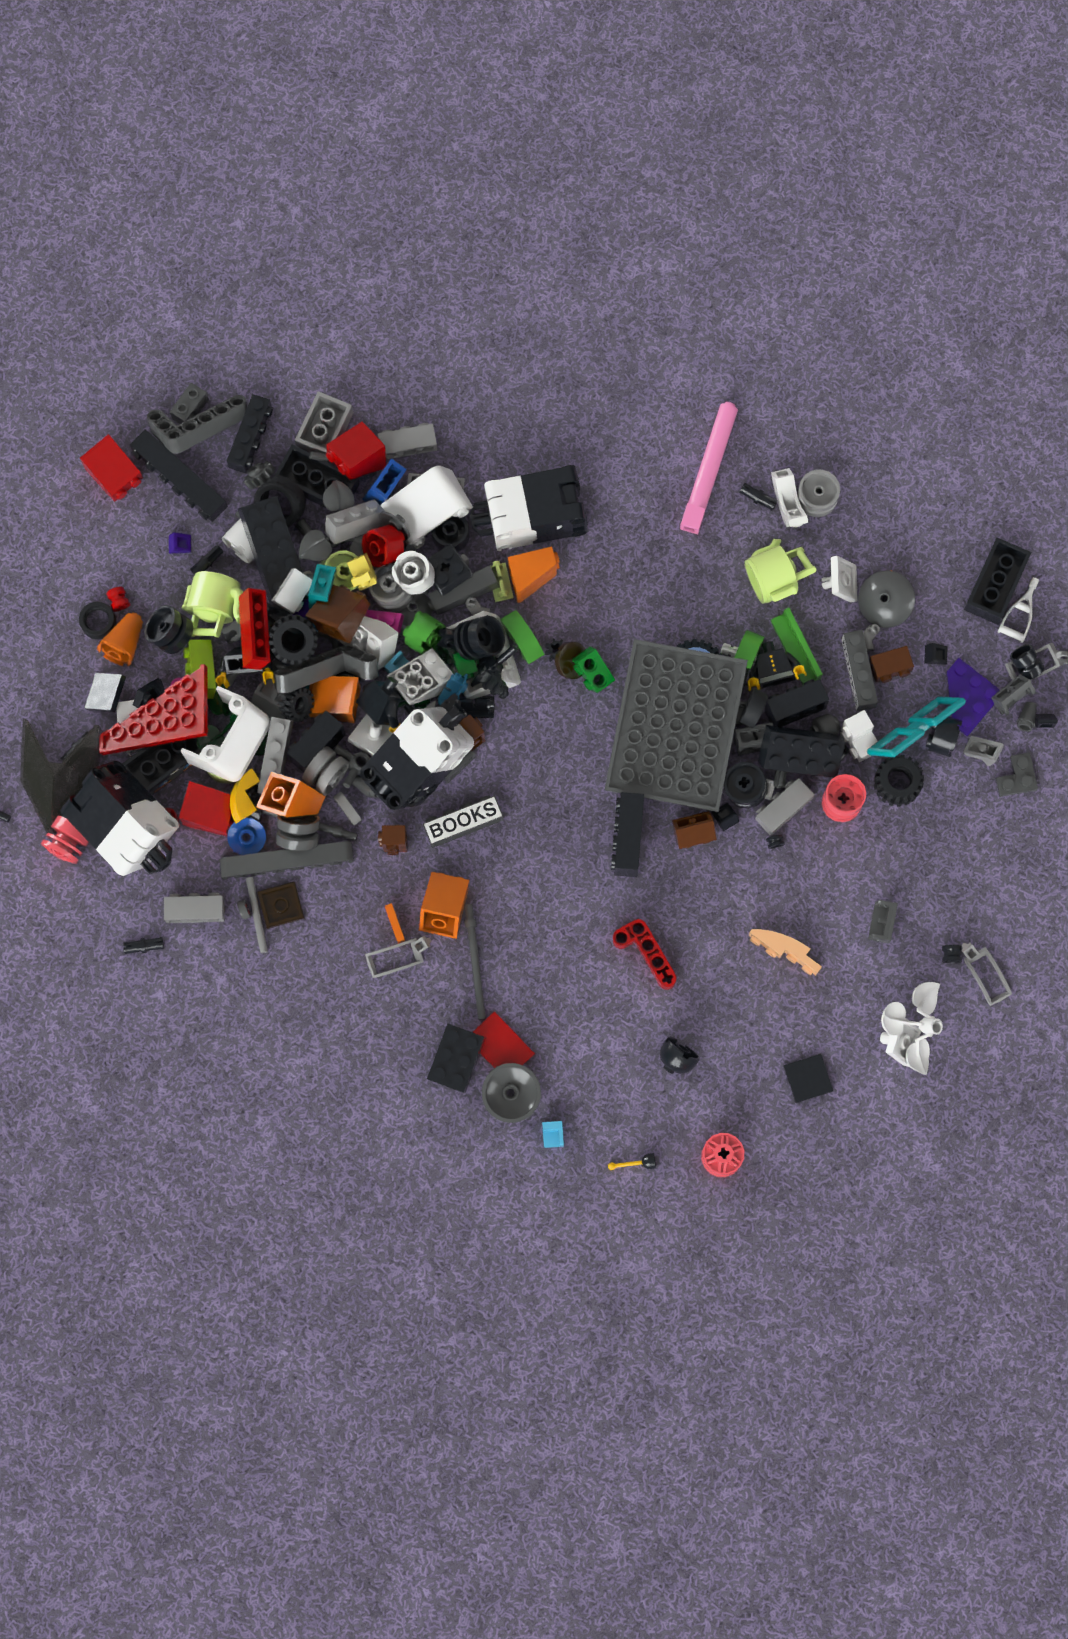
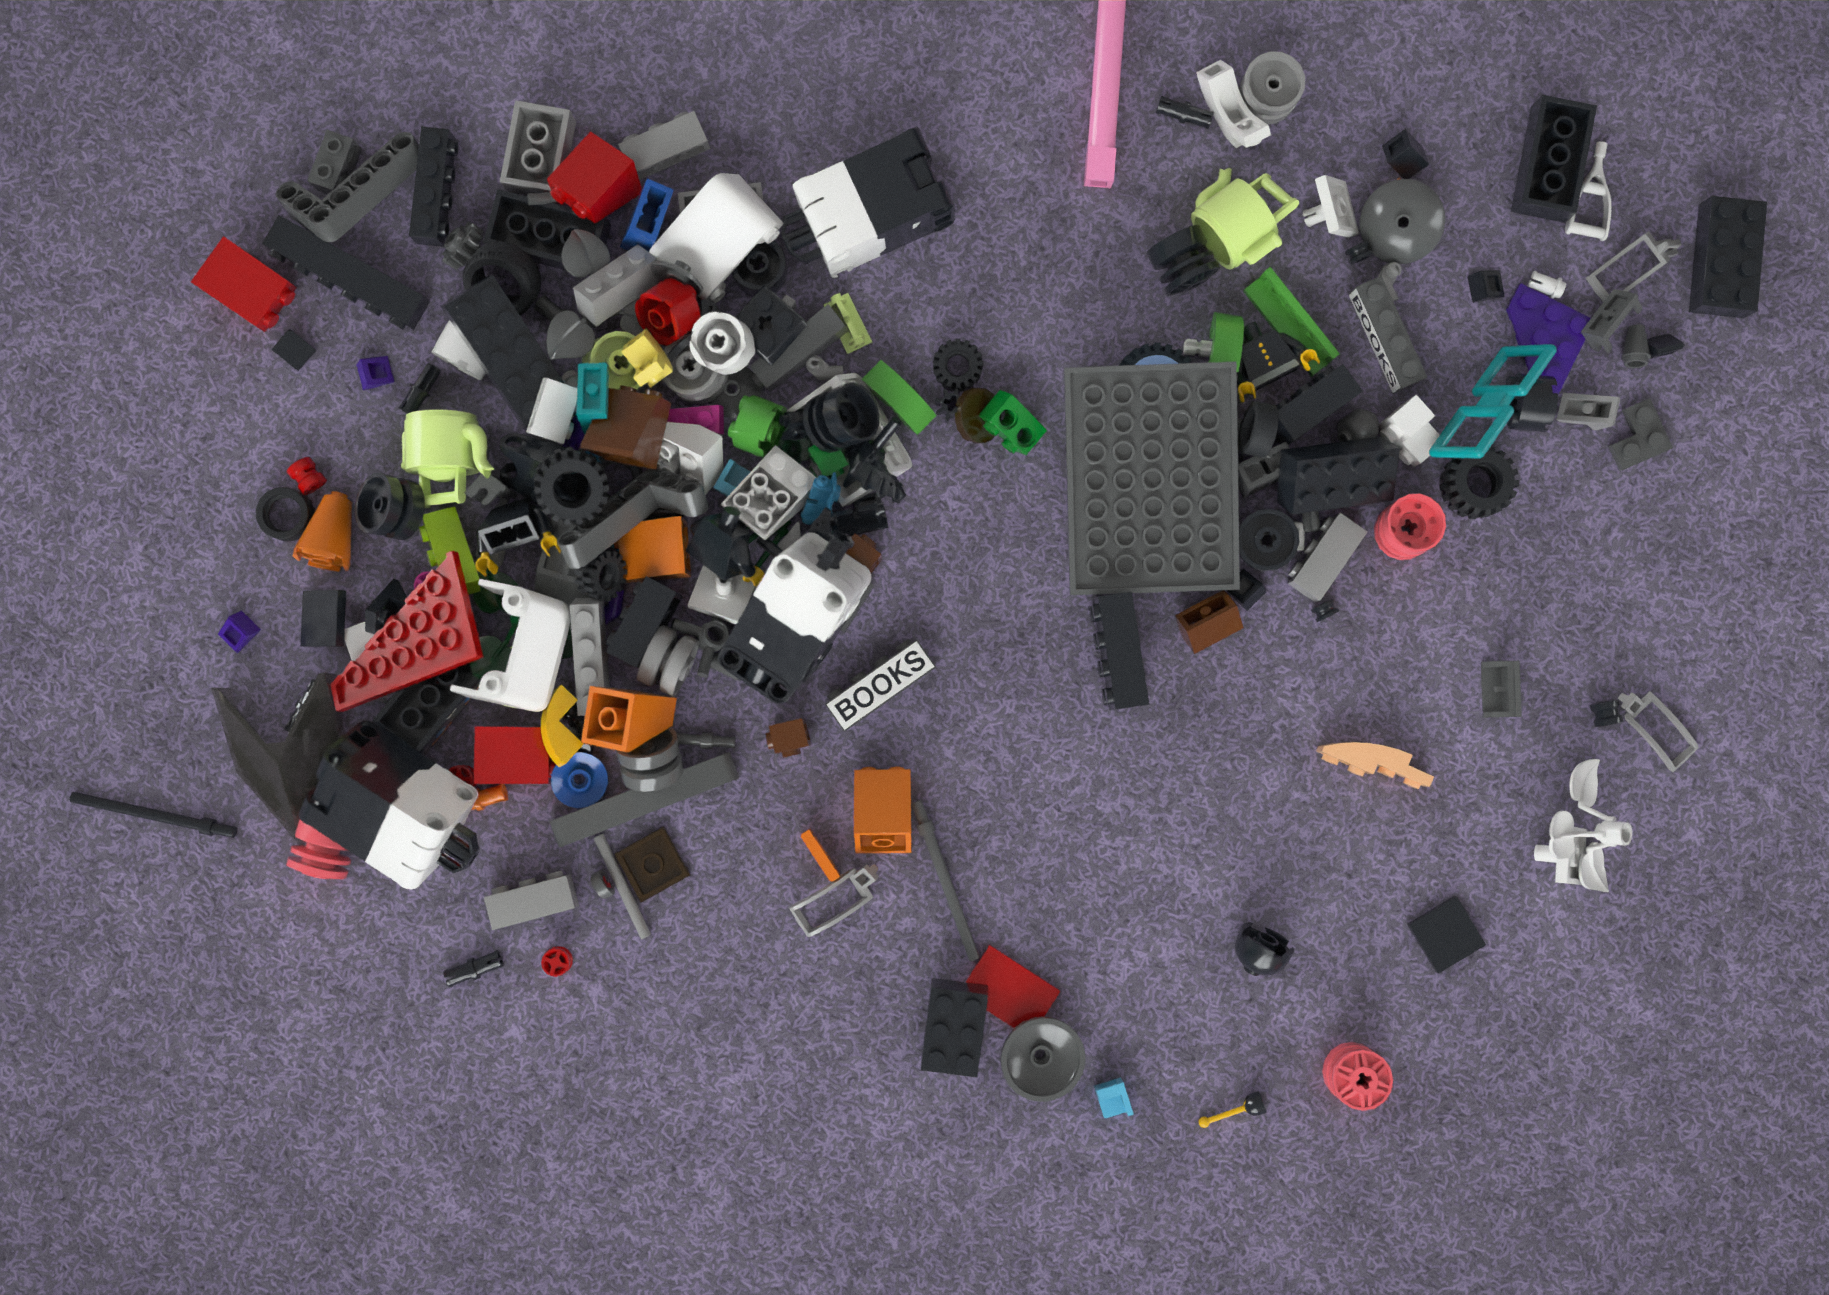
camera: 20 degrees left, 10 degrees up
(46, 689) = (238, 631): none -> dark purple slope
(130, 517) = (293, 349): none -> black slope
(183, 834) = (490, 796): none -> orange pin
(198, 950) = (554, 965): none -> red wheel
(254, 628) = (510, 483): red brick -> none
(297, 731) = (614, 608): none -> dark purple arm
(347, 808) = (711, 704): light grey beam -> none
(532, 571) = (890, 297): orange slope -> none
(562, 615) = (963, 349): none -> black tyre
(649, 956) = (1188, 815): red beam -> none
(732, 590) = (1181, 256): none -> black wheel
(853, 613) = (1359, 252): none -> black bush
(891, 664) = (1432, 314): reddish brown brick -> none
(899, 556) = (1405, 154): none -> black panel
(977, 663) = (1548, 285): none -> white pin
(1026, 662) = (1622, 267): black wheel -> none

